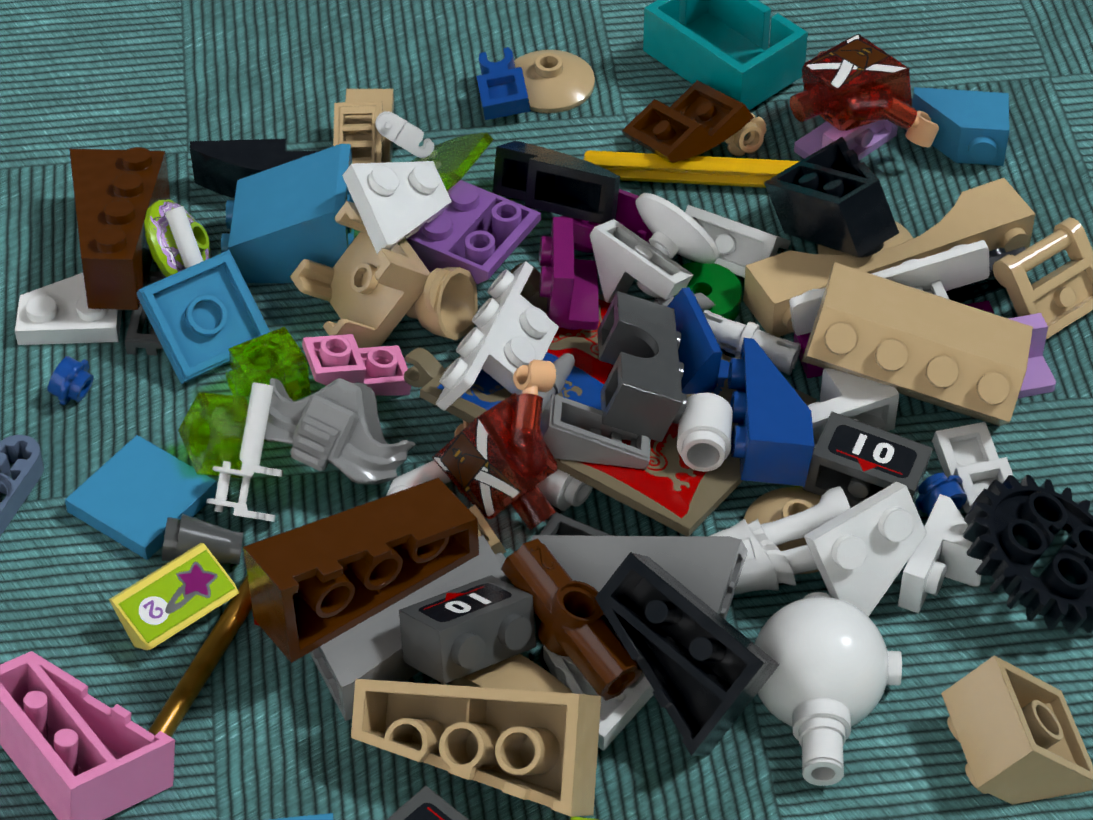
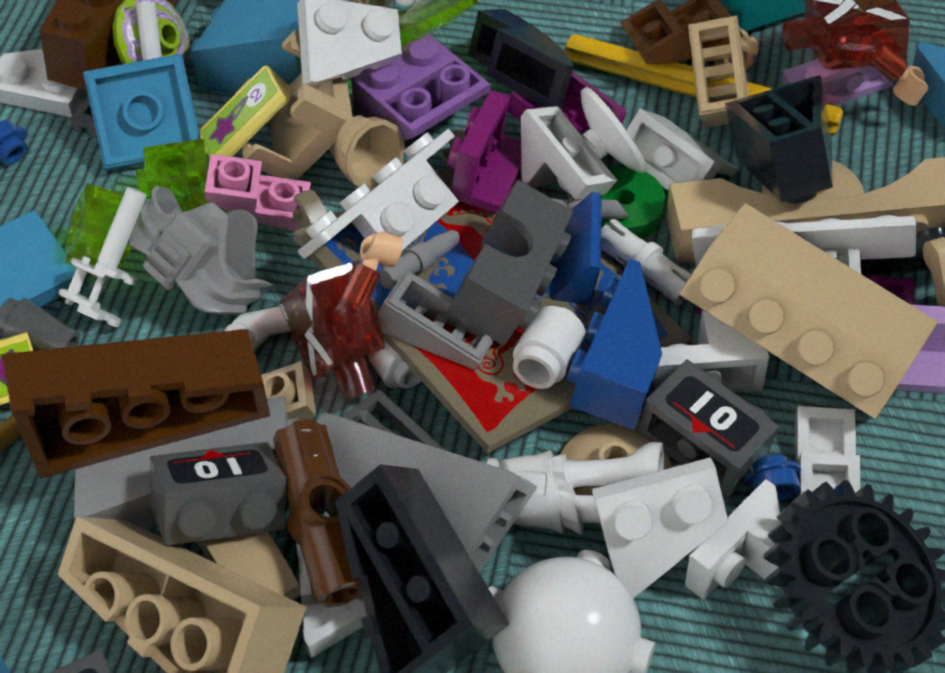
camera: 20 degrees right, 5 degrees up
(314, 294) = (245, 113): none -> slope
(755, 193) = (715, 113): none -> tan slope

